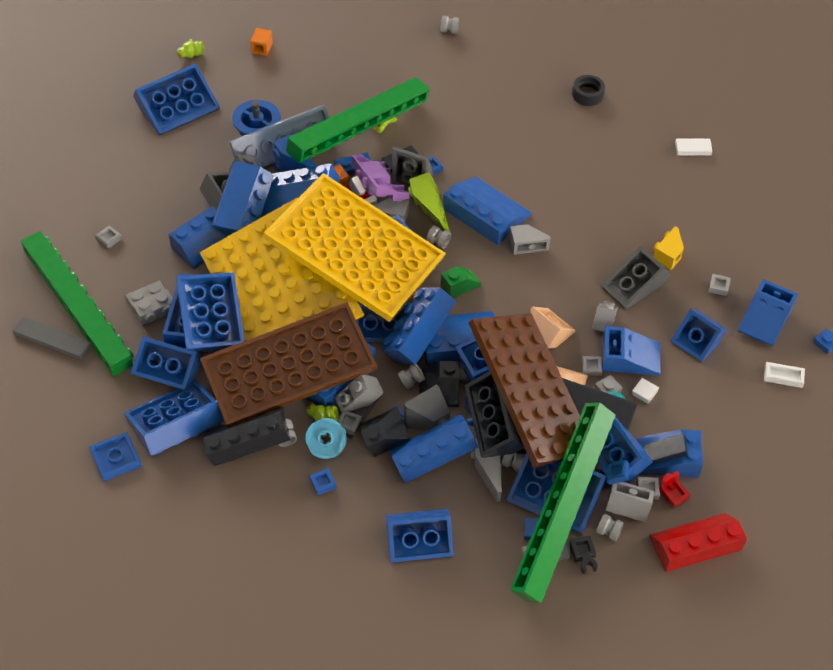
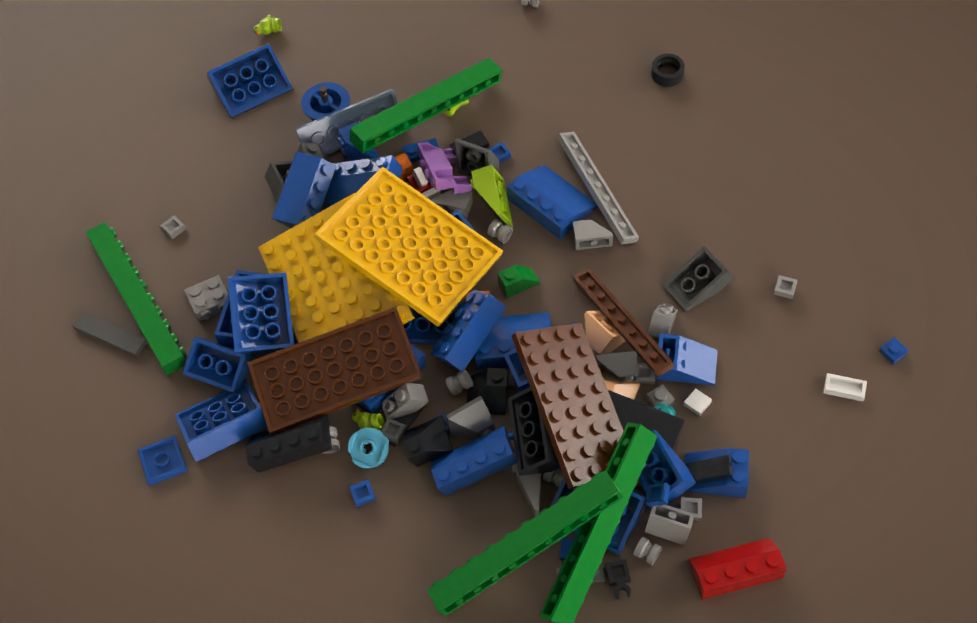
camera: 10 degrees right, 5 degrees up
(195, 237) = (257, 229): blue slope -> none
(261, 41) = (338, 17): orange brick -> none
(419, 535) = (449, 549): blue slope -> none
(492, 519) = (524, 543): none -> green brick
(531, 197) = (598, 188): none -> light grey plate
(569, 317) = (623, 322): none -> reddish brown plate
(570, 355) = (619, 365): none -> dark grey slope
(670, 249) = (736, 247): yellow slope -> none
(673, 490) = (716, 511): red bracket -> none
(693, 147) = (772, 132): white tile -> none
(698, 334) = (758, 342): blue slope -> none
(768, 312) = (833, 319): blue slope -> none

